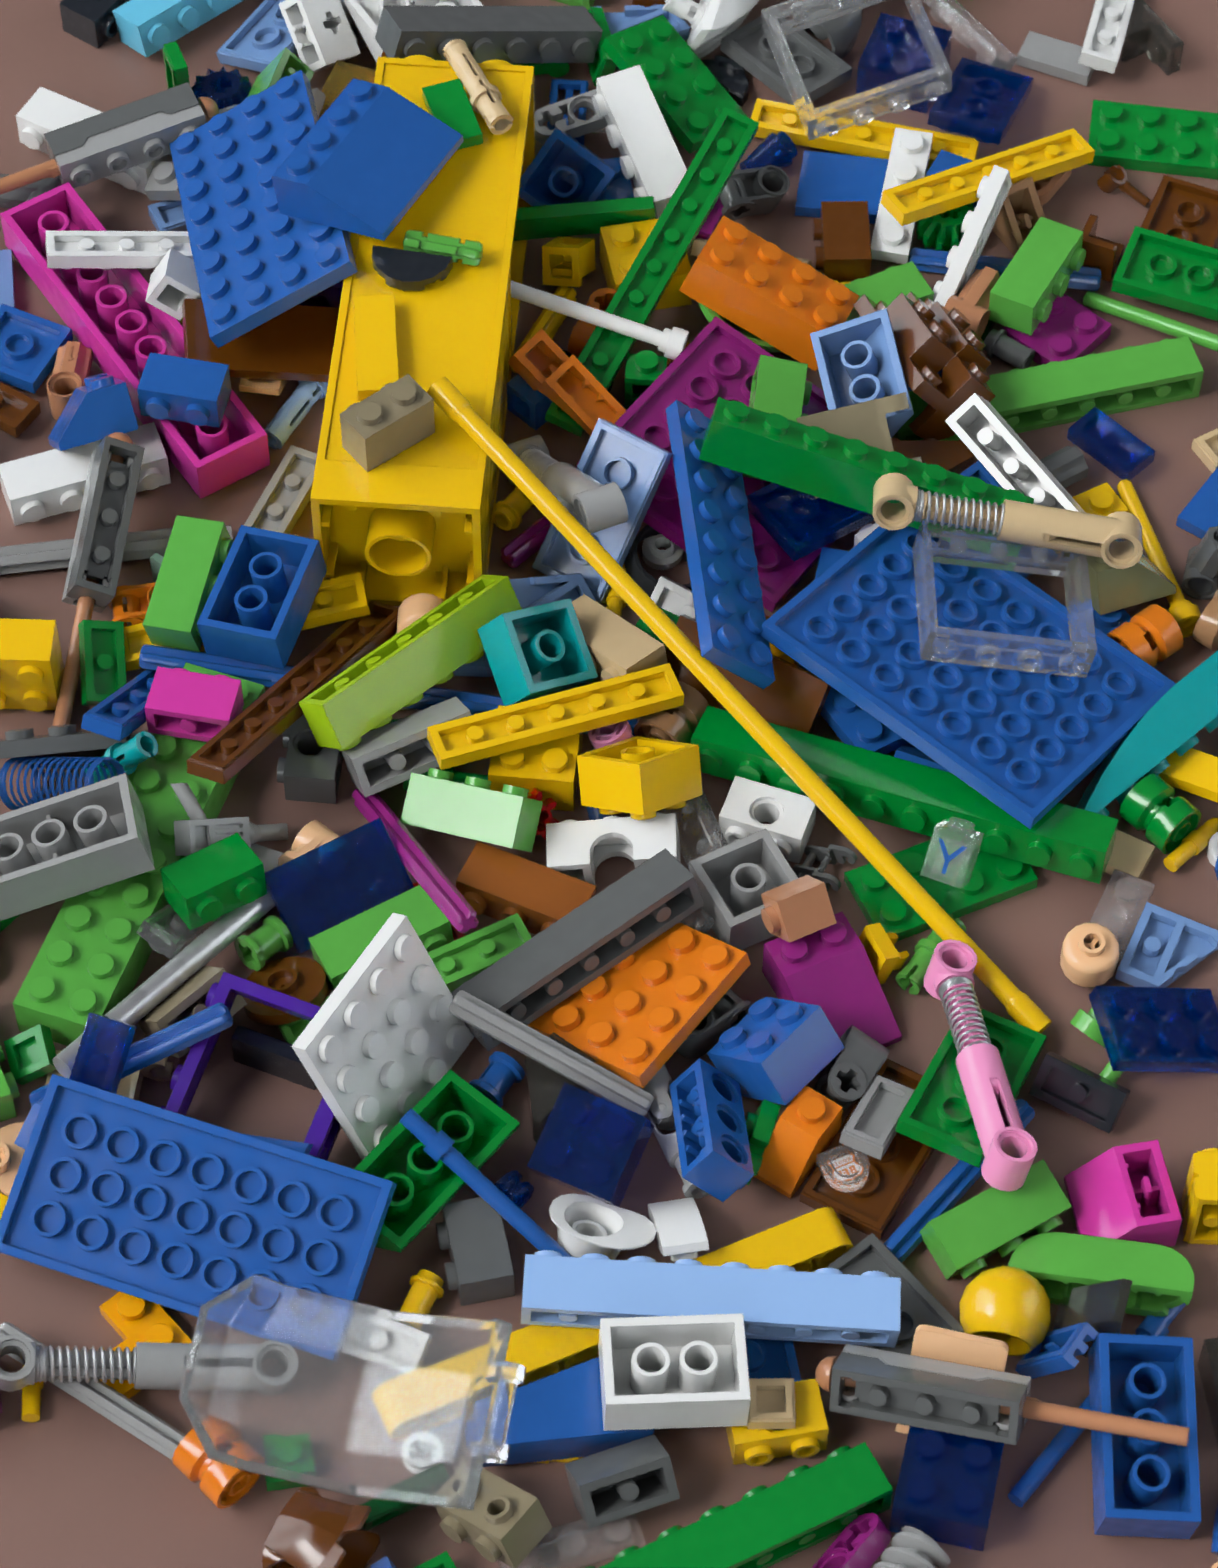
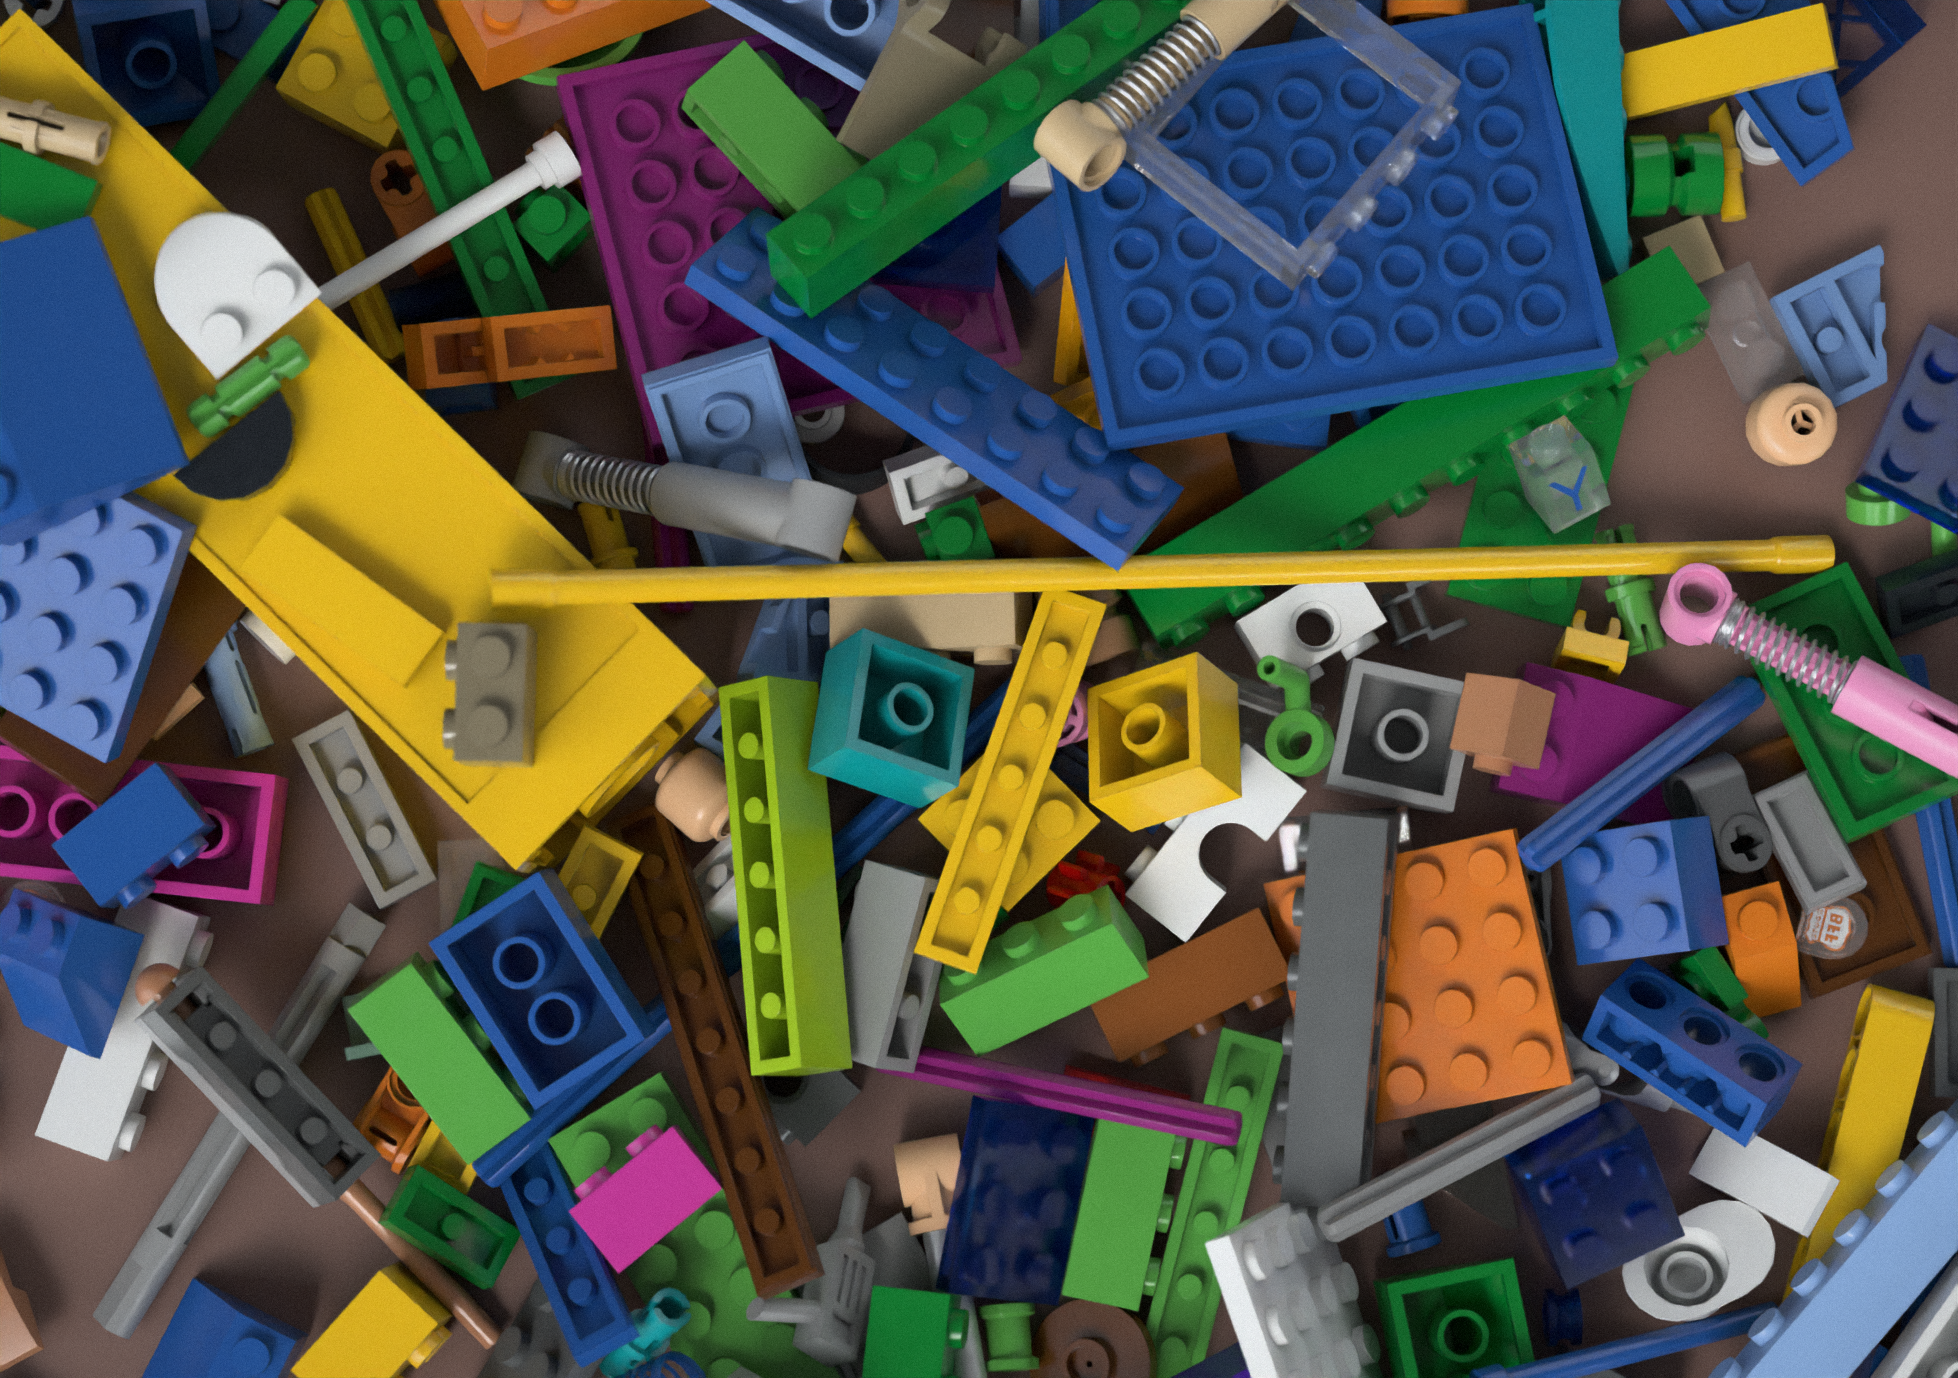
camera: 50 degrees left, 30 degrees up
(481, 208) = (227, 286): none -> white slope
(567, 261) = (281, 162): yellow brick -> none
(703, 834) = (1295, 722): none -> bright green plate
(838, 1008) = (1640, 773): none -> blue axle

